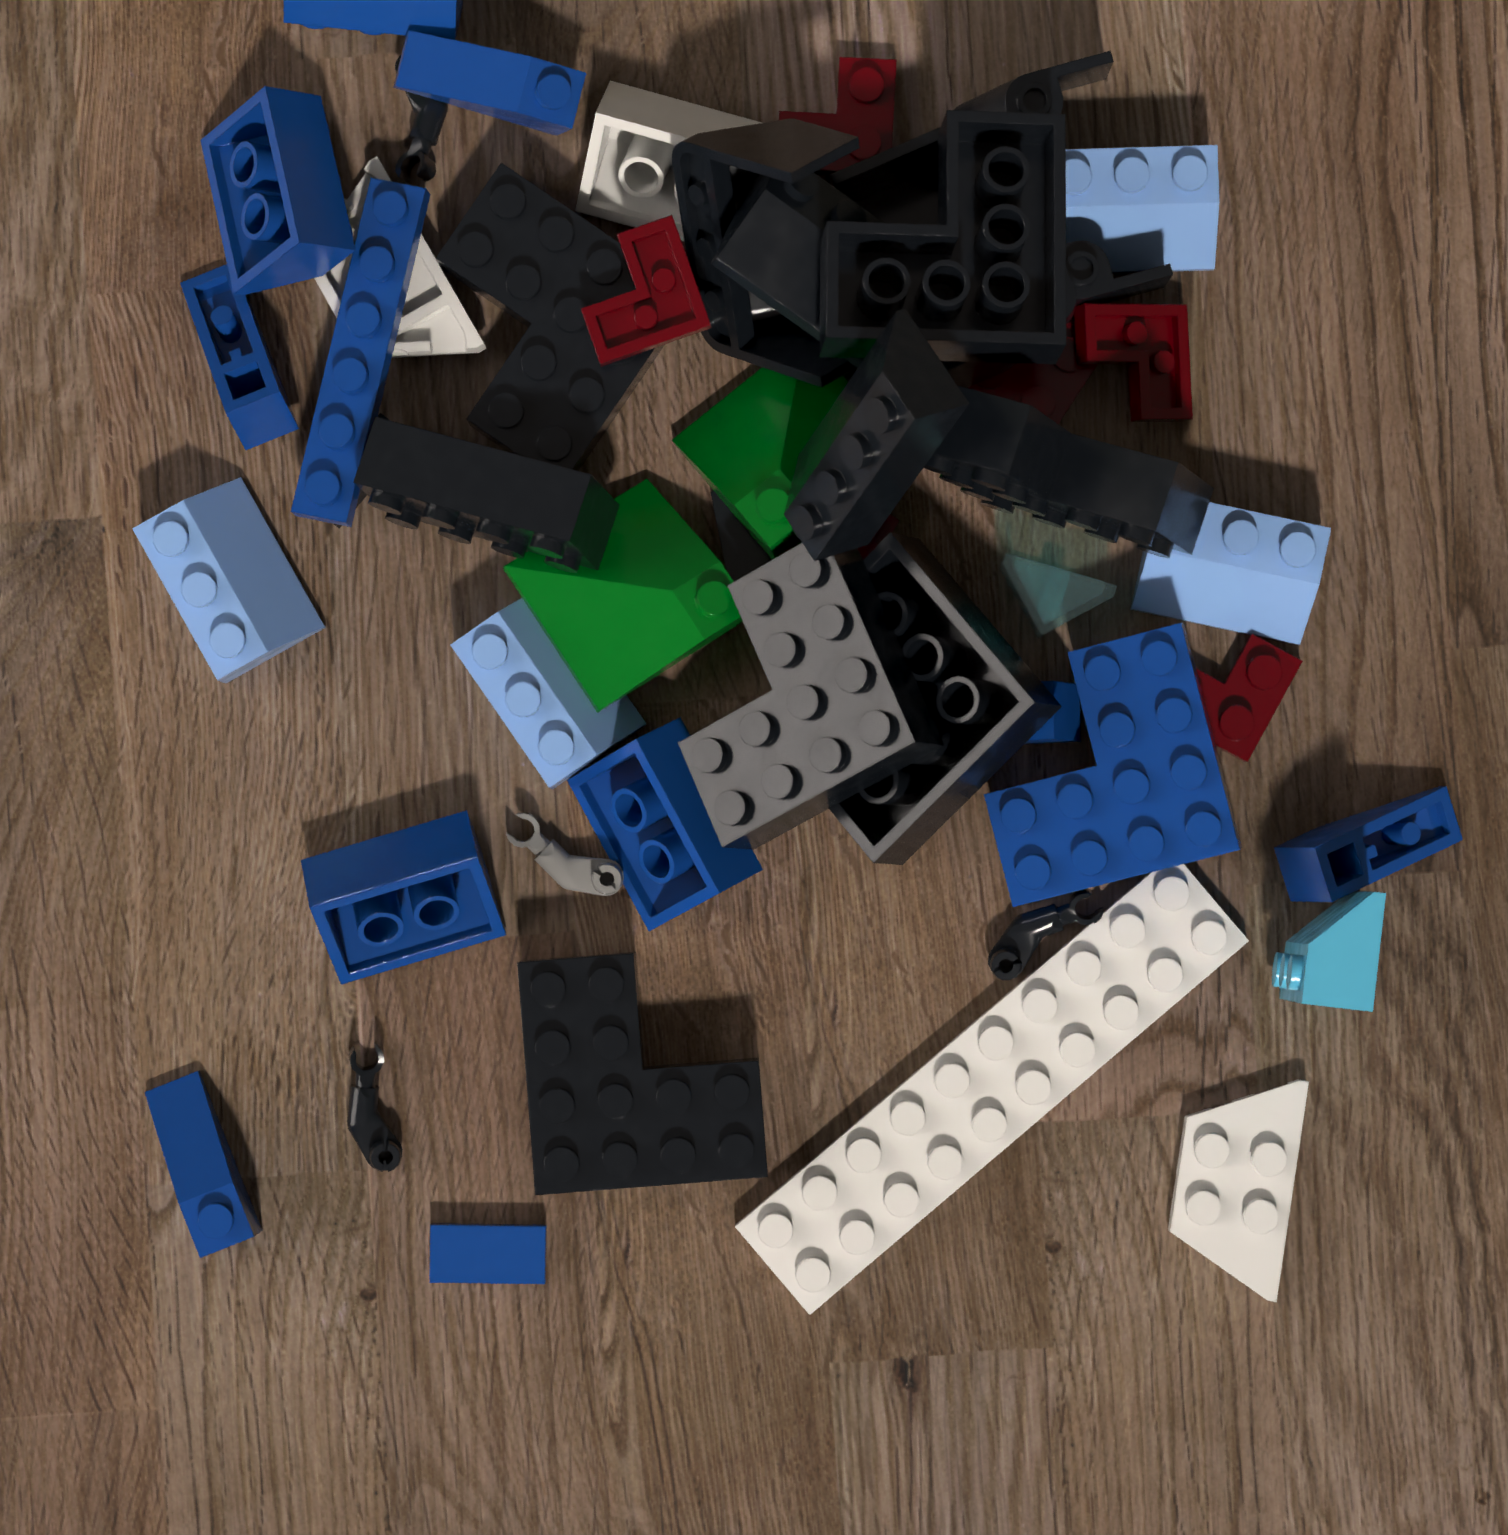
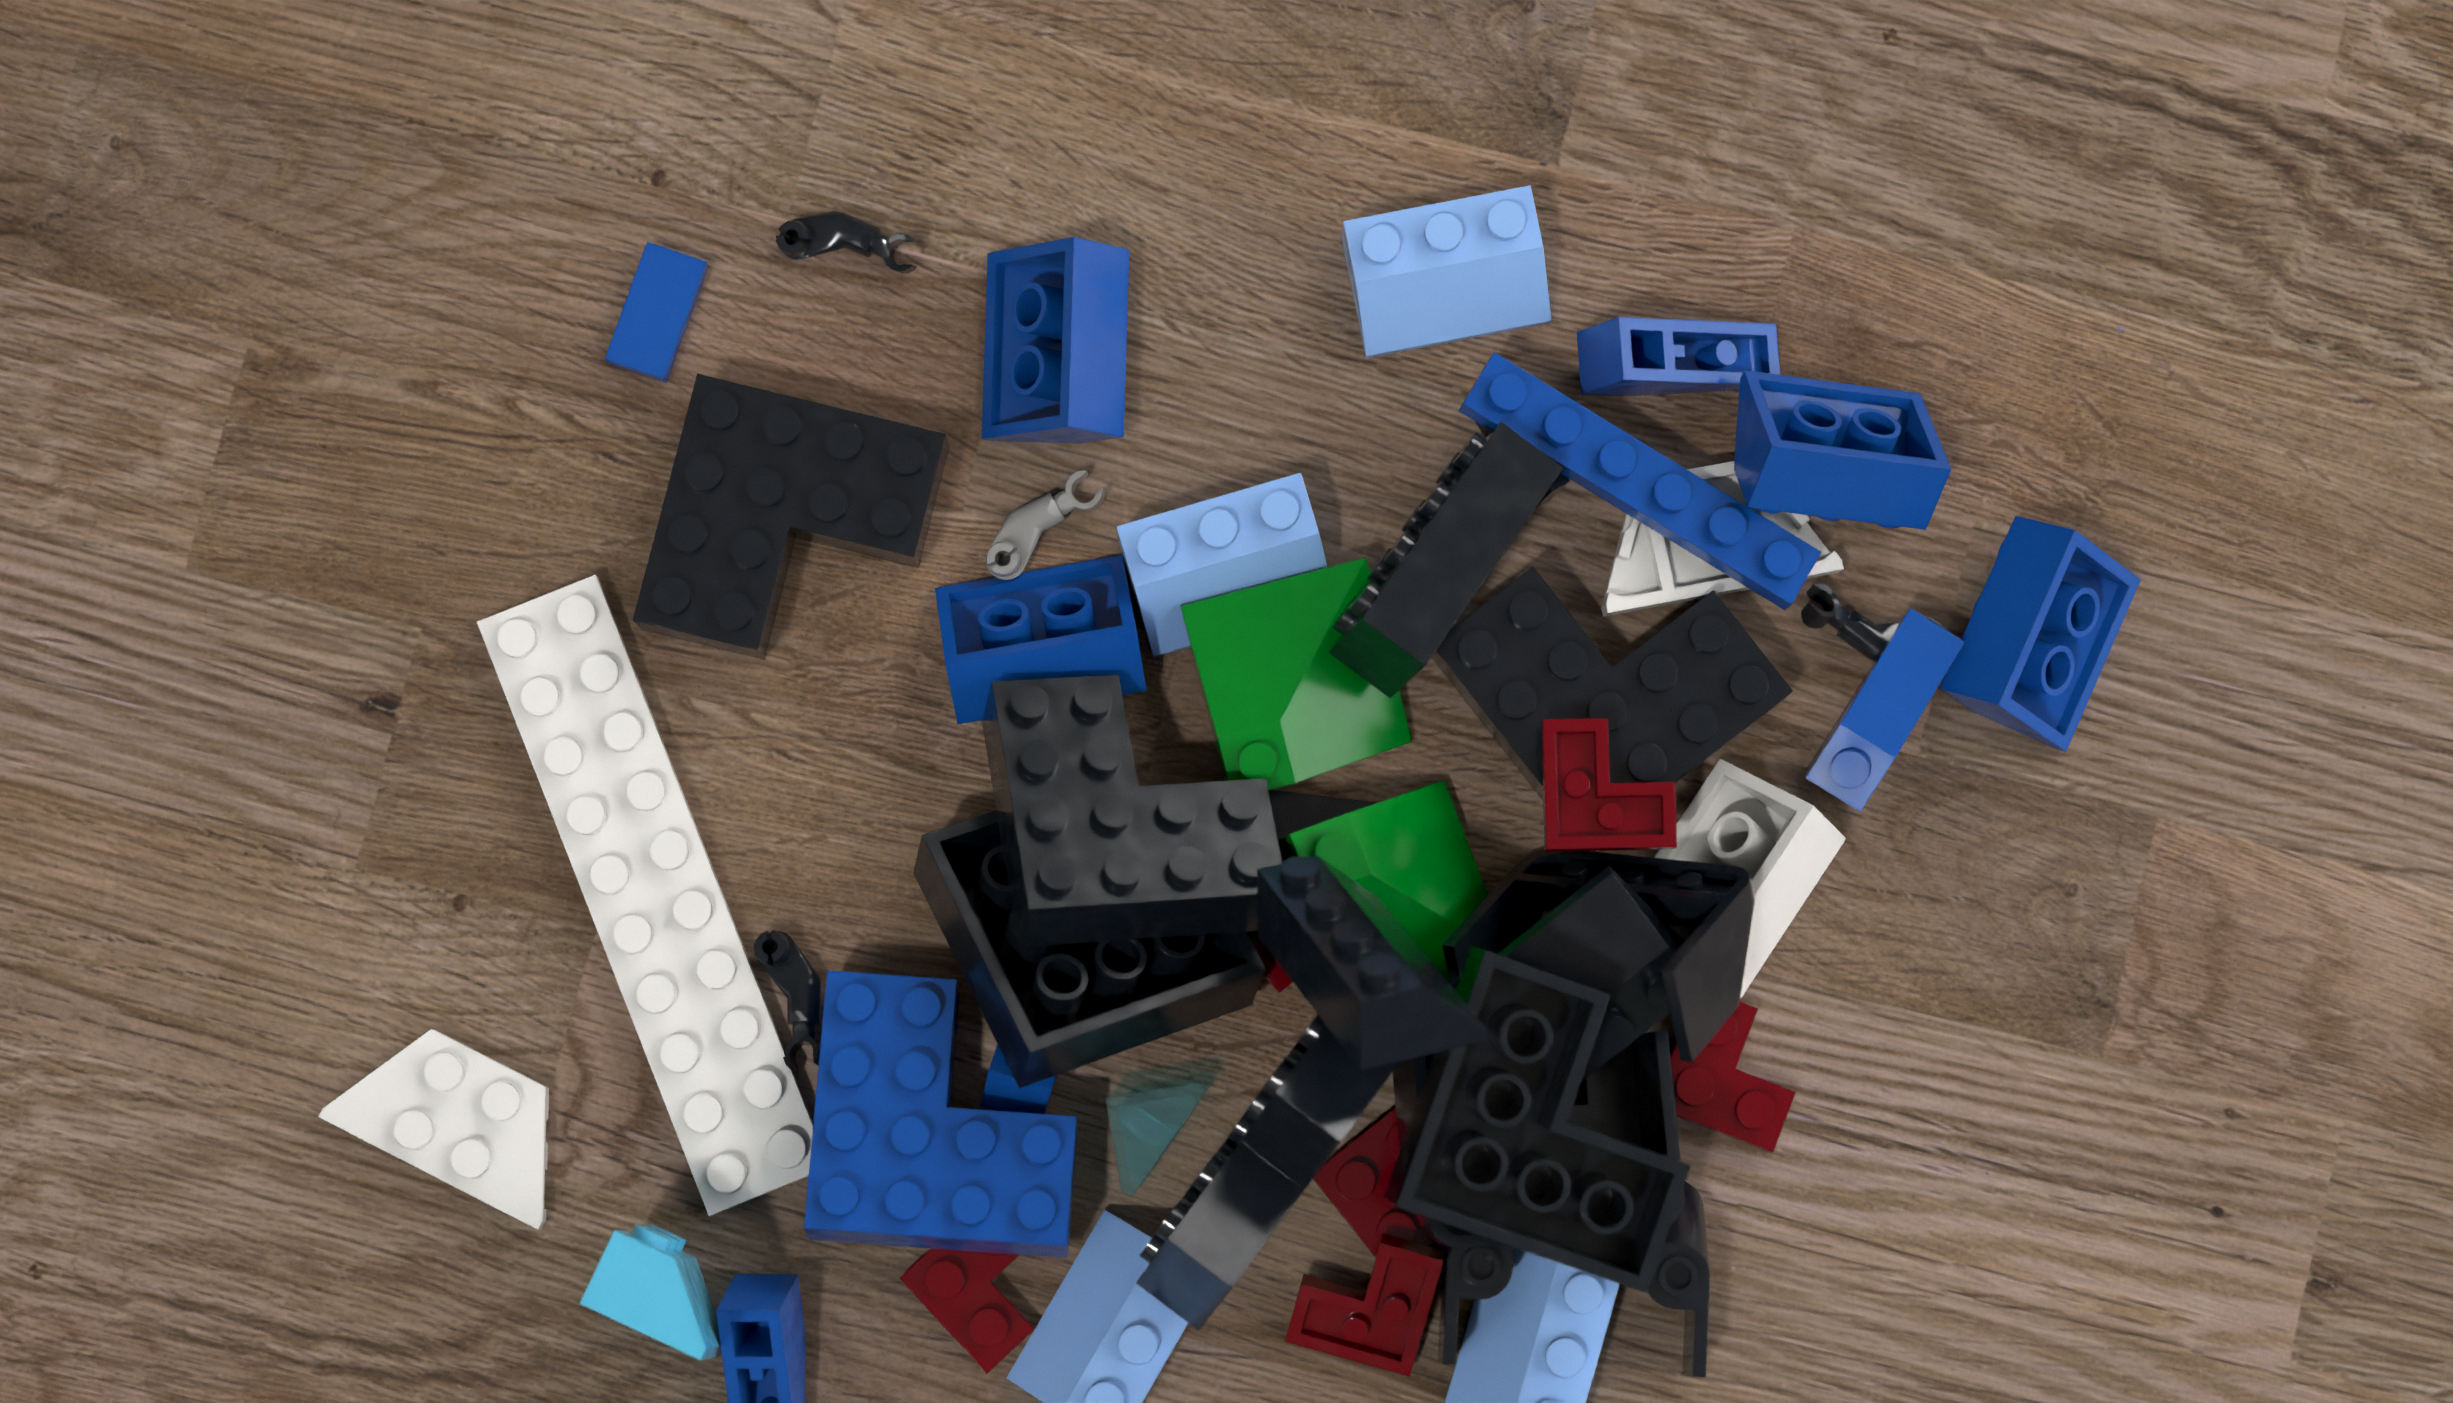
camera: 105 degrees right, 5 degrees down
(201, 1165) = (846, 49): blue slope -> none

